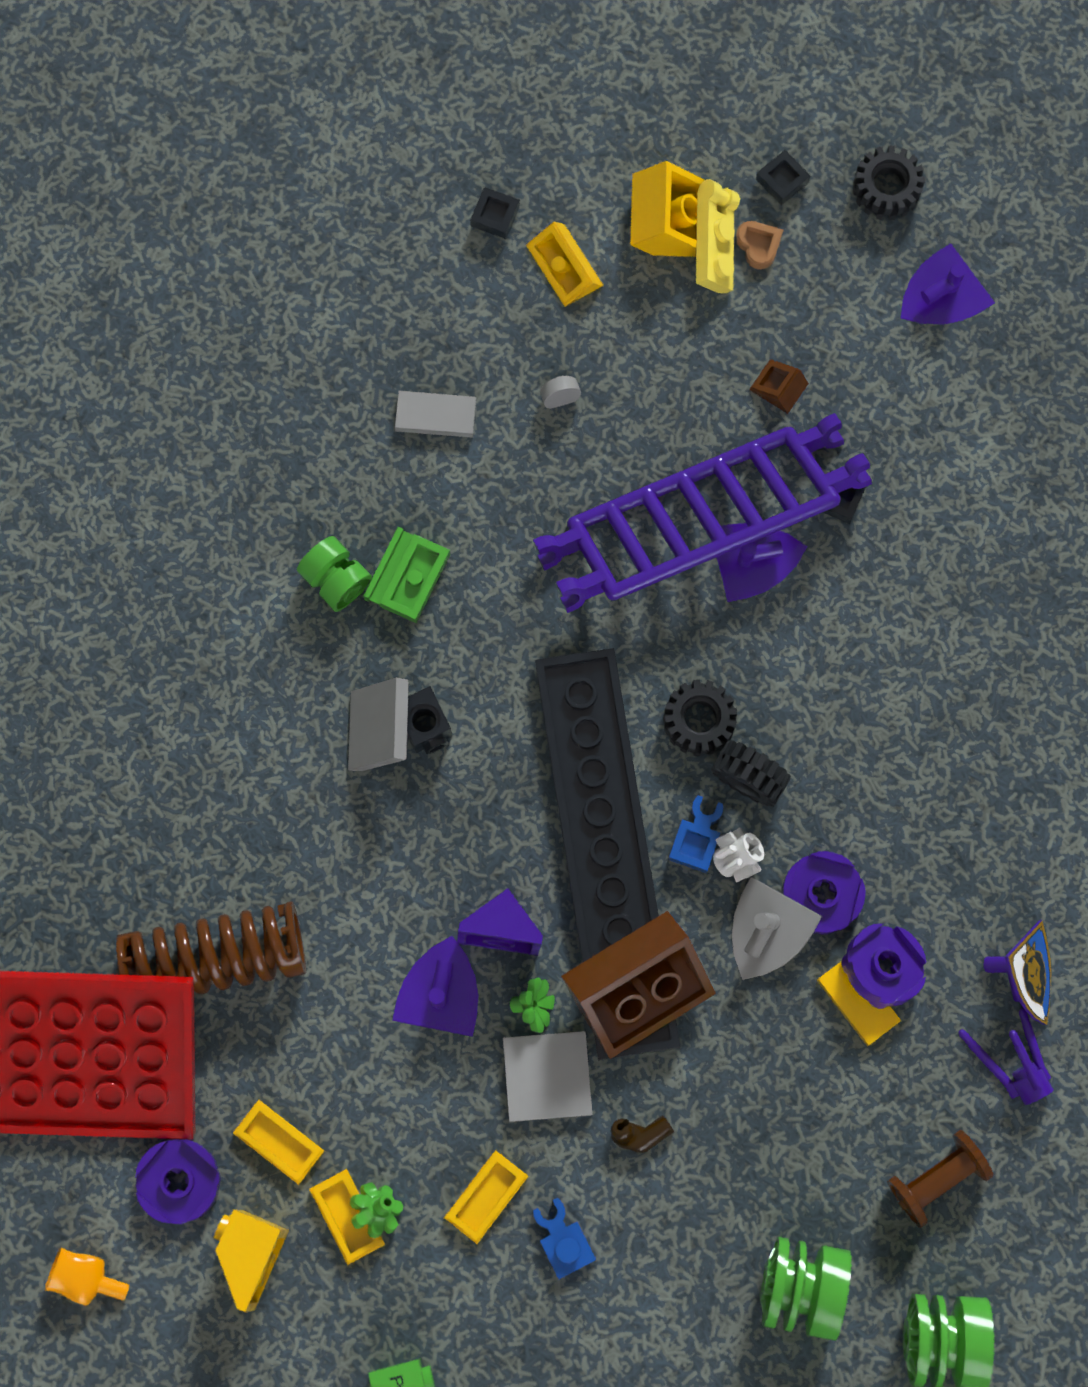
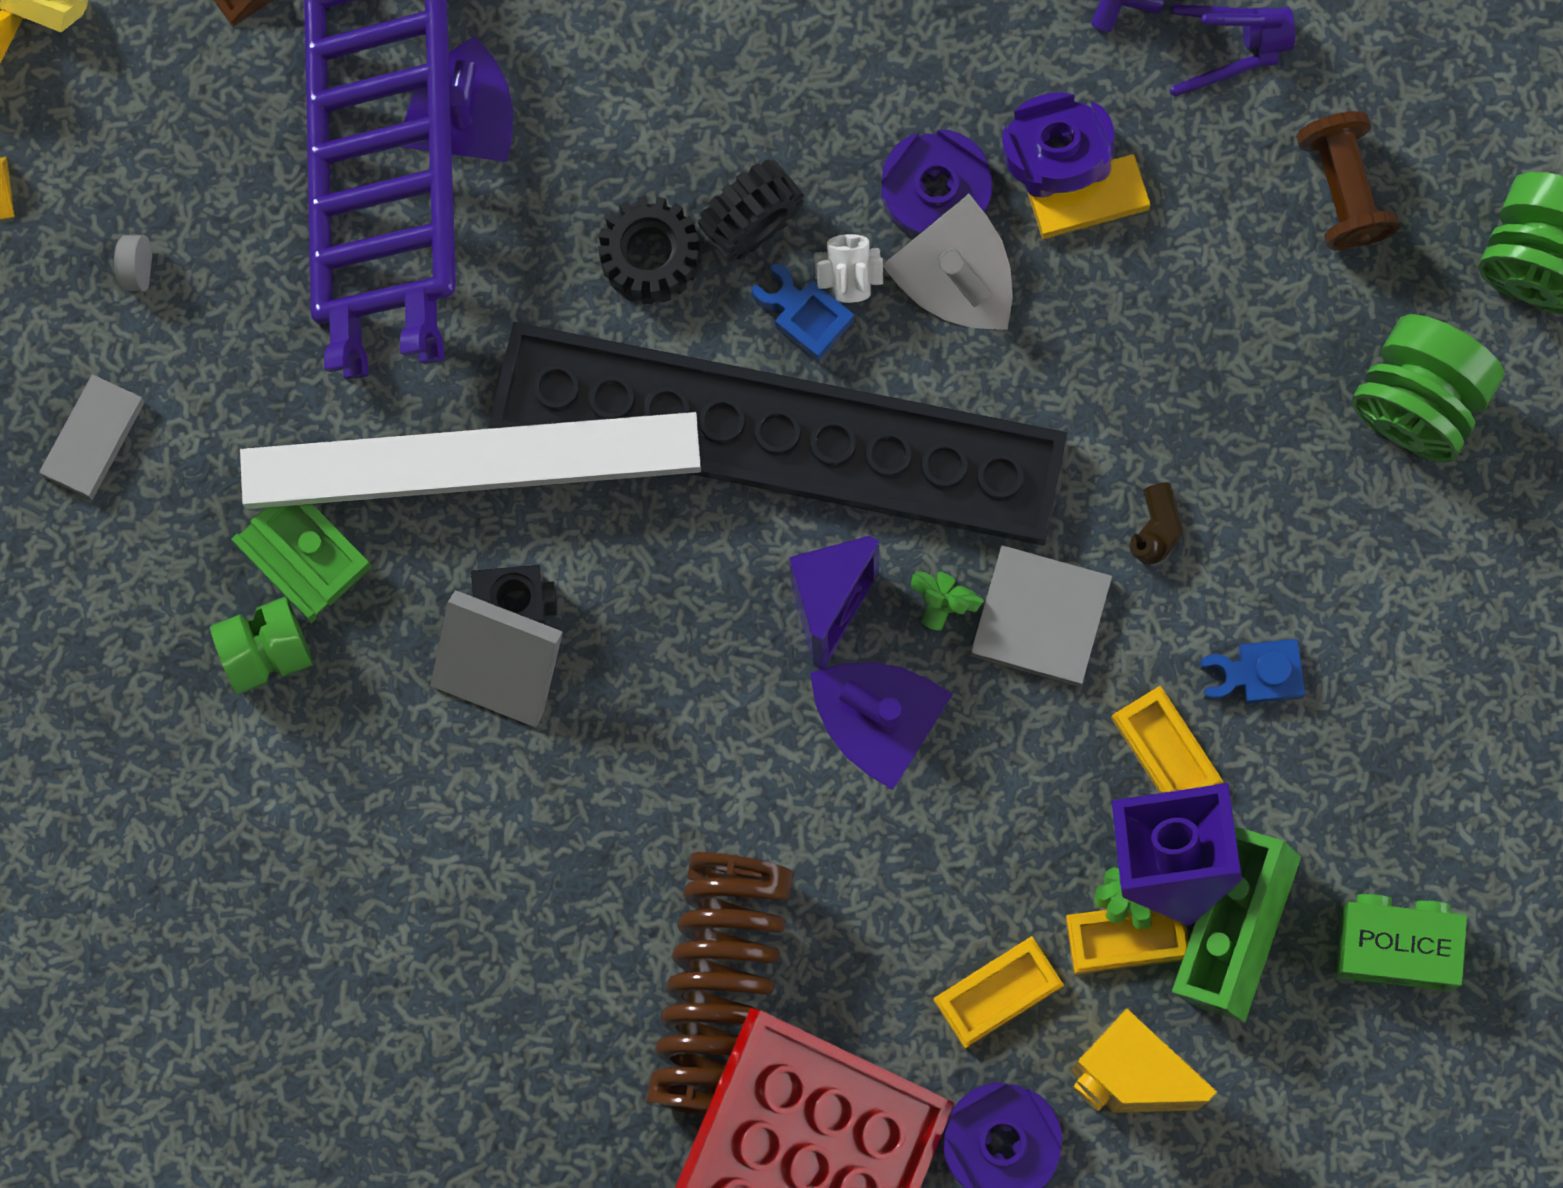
camera: 65 degrees left, 0 degrees up
(376, 1287) = (1238, 931): none -> bright green brick
(408, 1225) = (1177, 850): none -> dark purple slope
(507, 659) = (470, 460): none -> white tile
(639, 984) = (970, 448): reddish brown slope -> none

